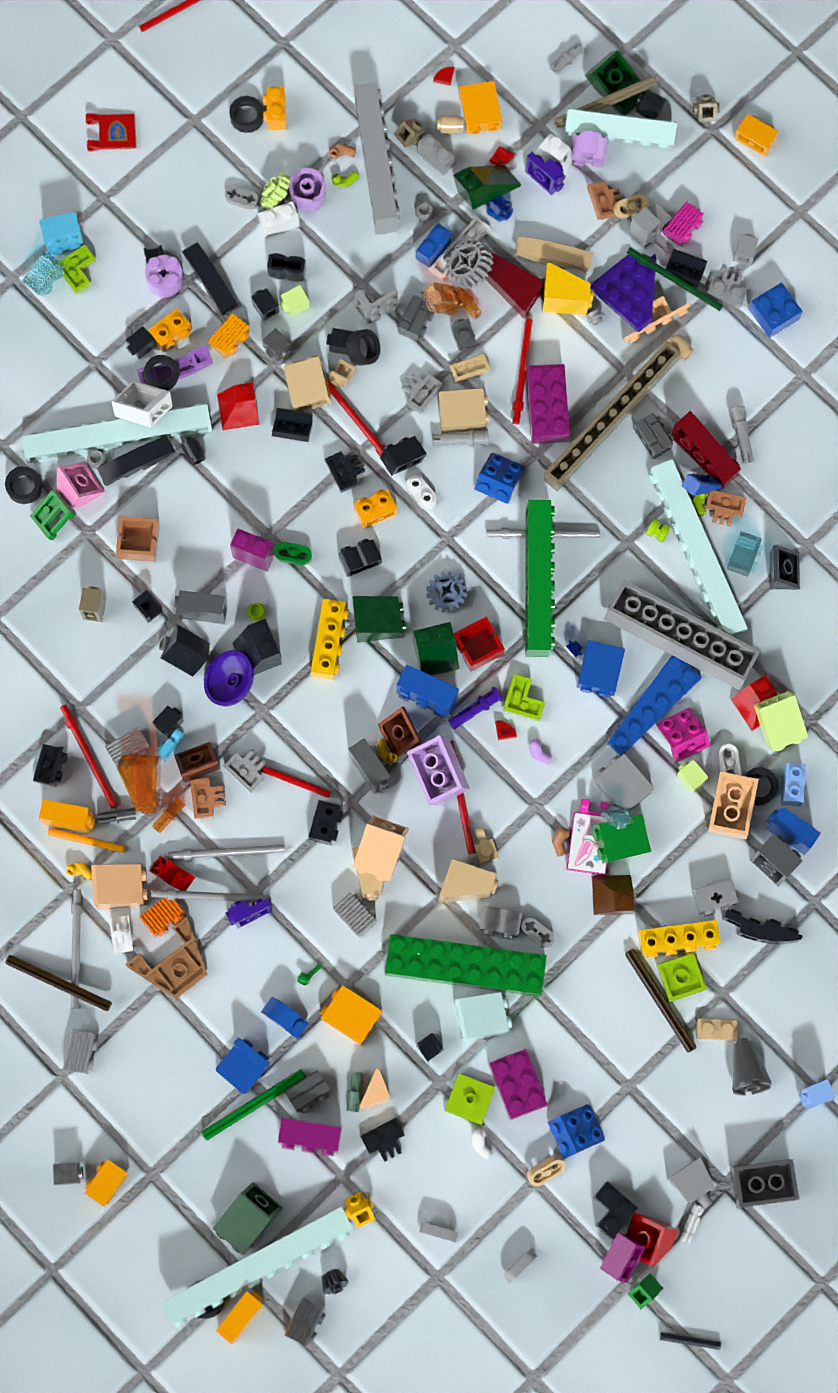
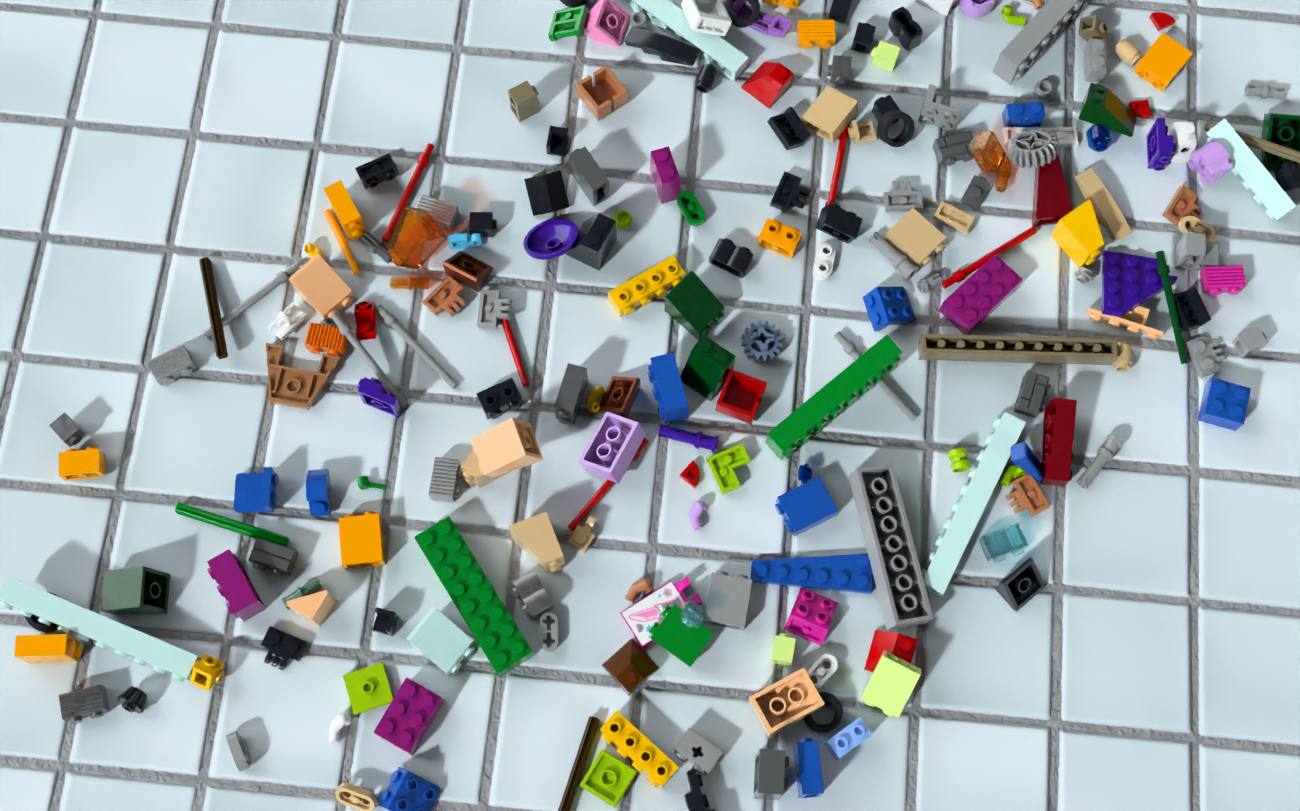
camera: 50 degrees right, 5 degrees down
(505, 432) = (925, 285): none -> light grey pin

